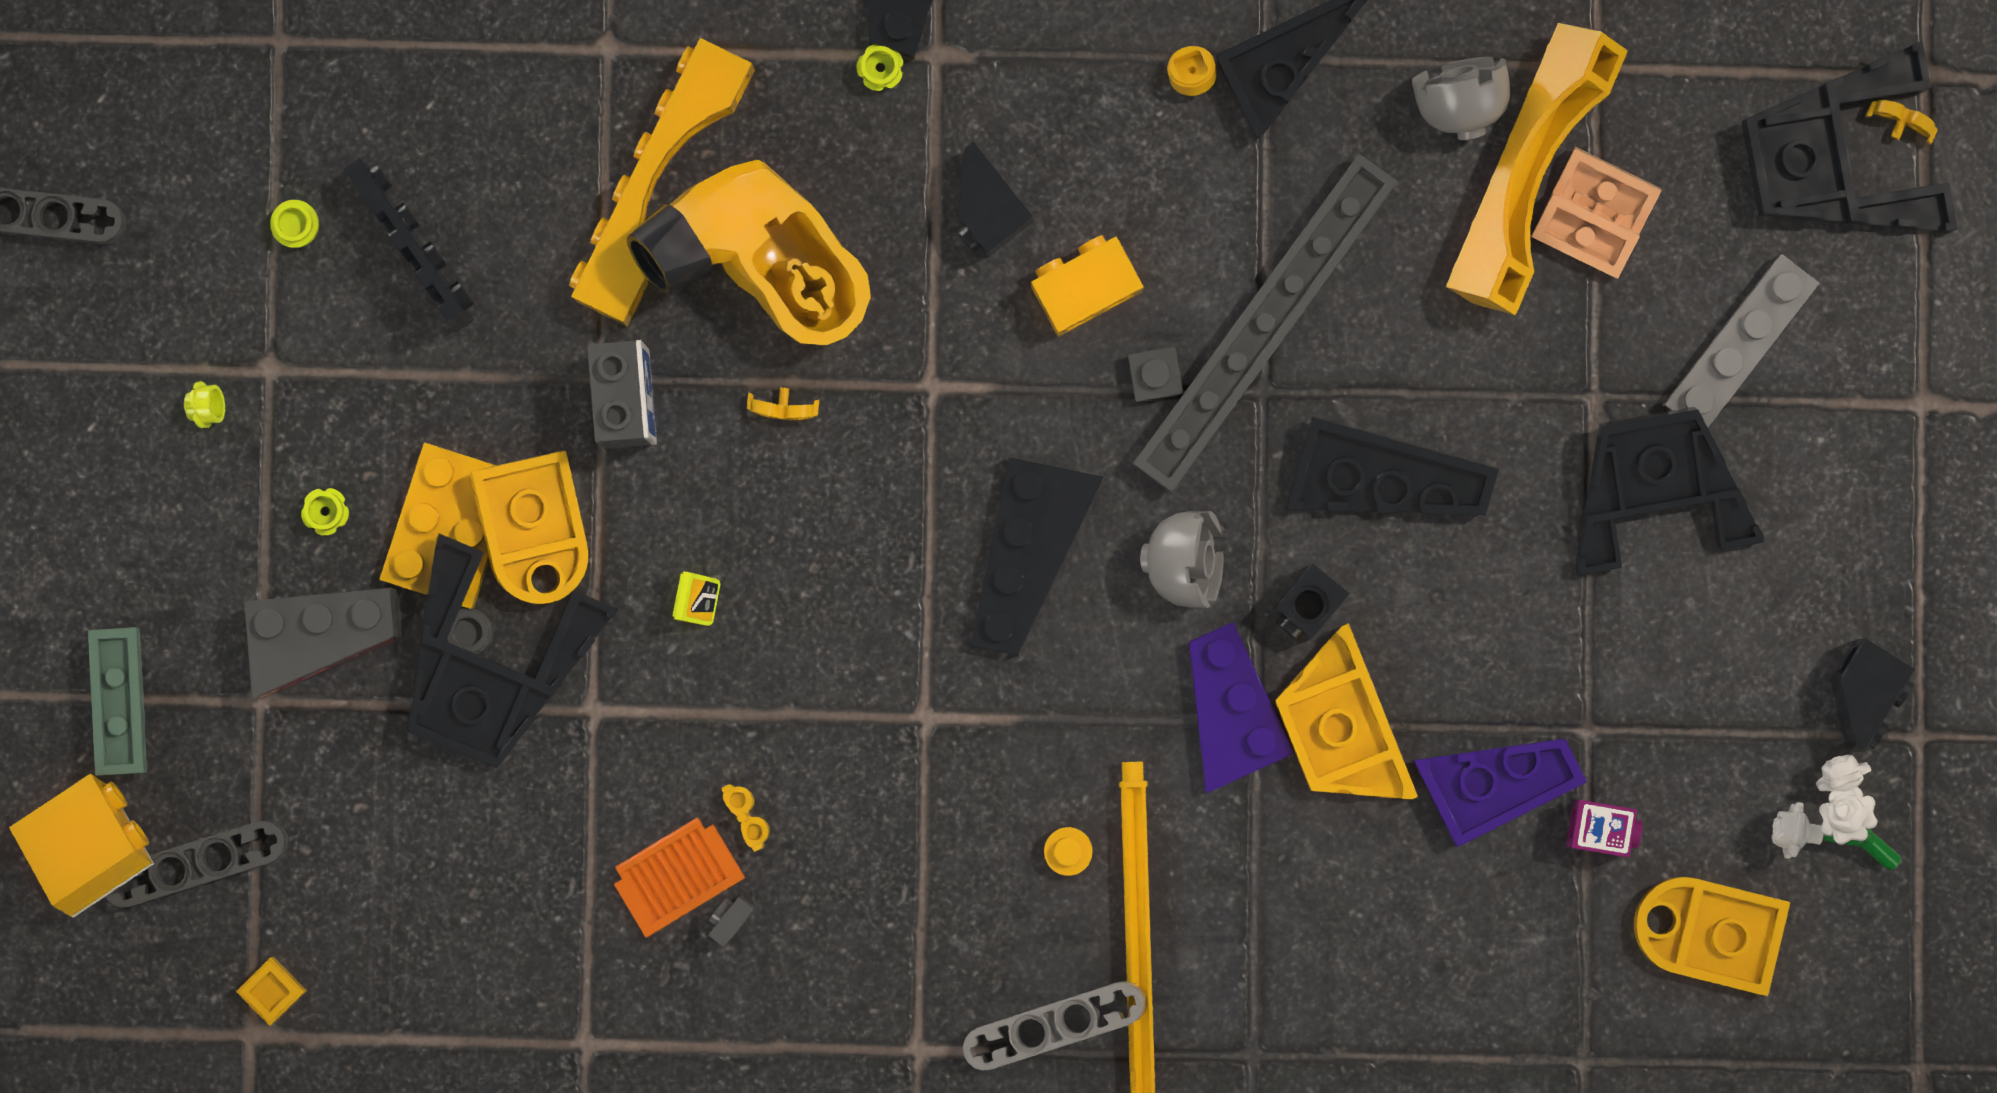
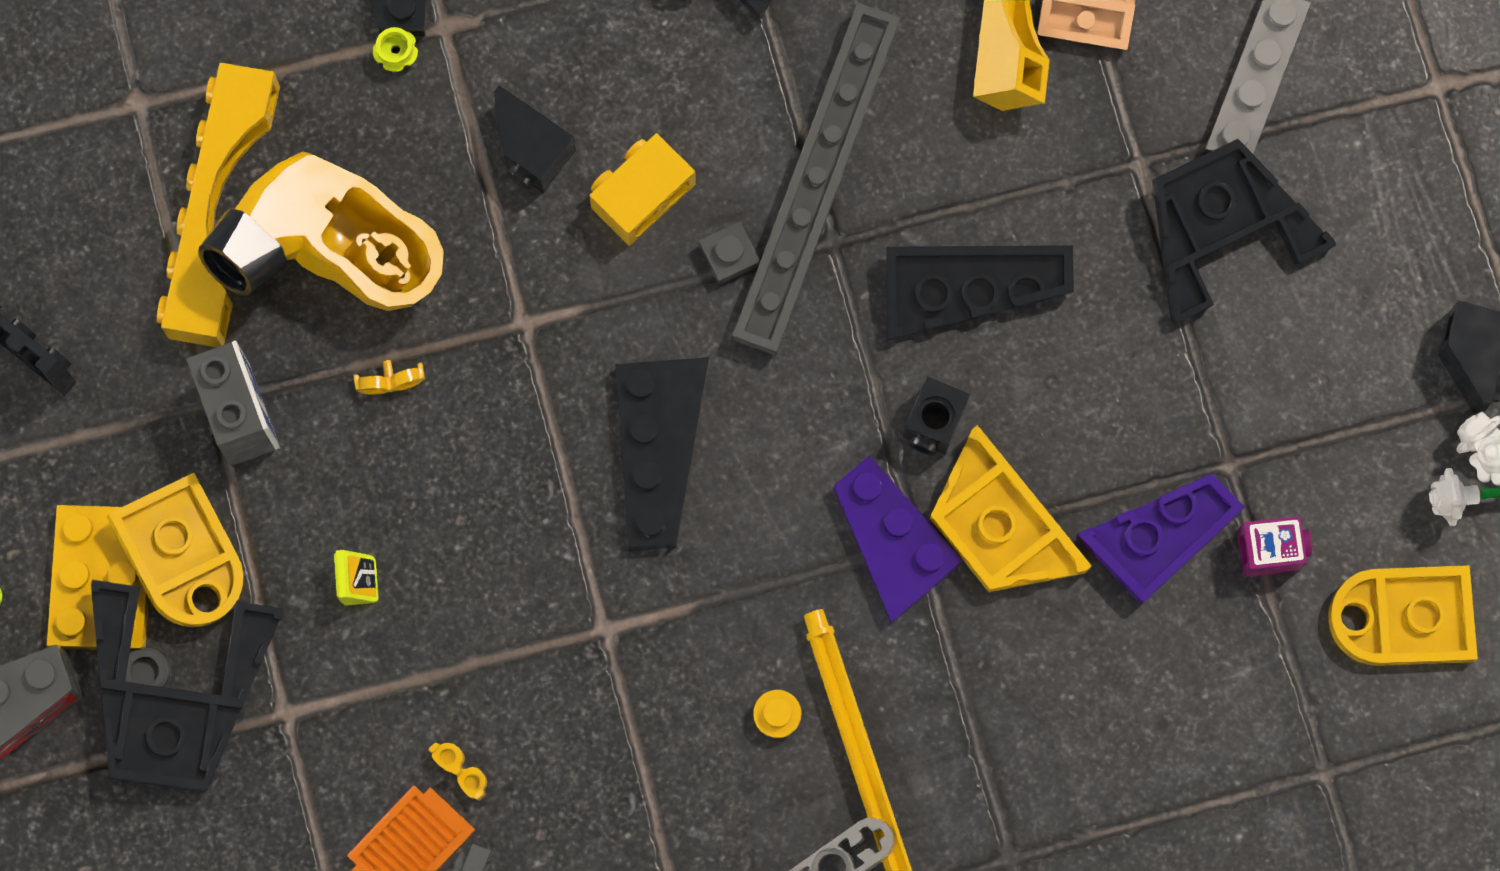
camera: 20 degrees left, 10 degrees down
(1184, 559) = (805, 408): light grey cylinder -> none

